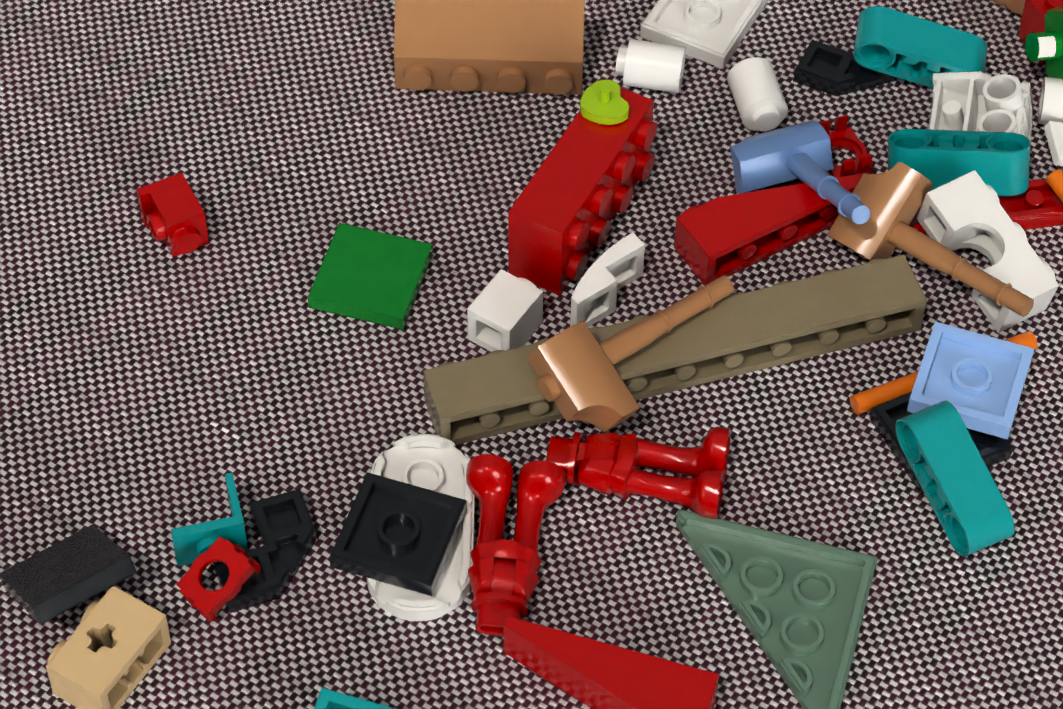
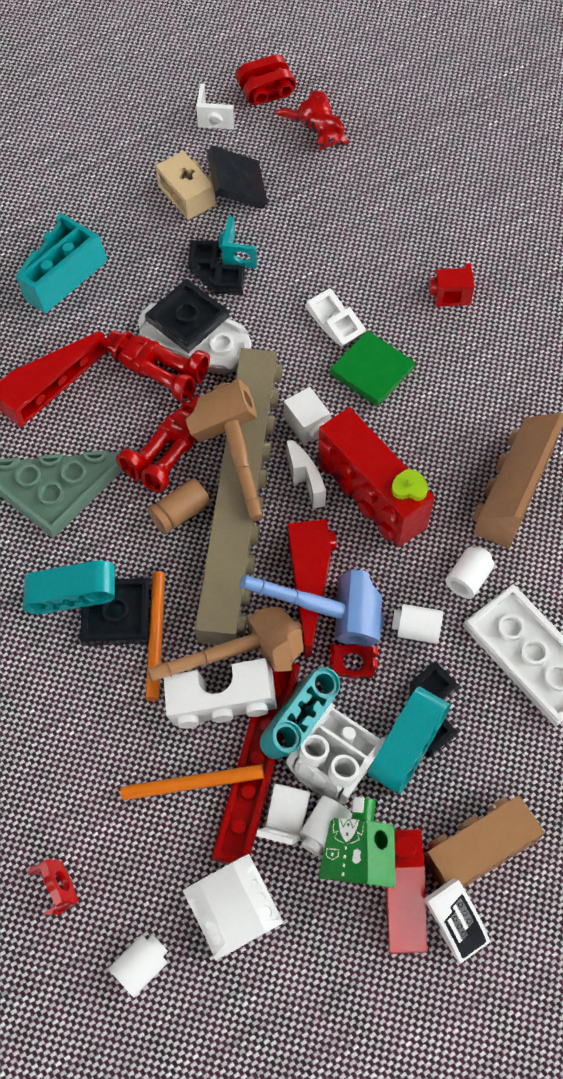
camera: 115 degrees right, 10 degrees up
(239, 568) = (204, 236): red piece -> none
(299, 353) = (334, 319): none -> white slope
(744, 410) = (179, 506): none -> medium nougat piece
(975, 374) = (128, 630): light blue plate -> none

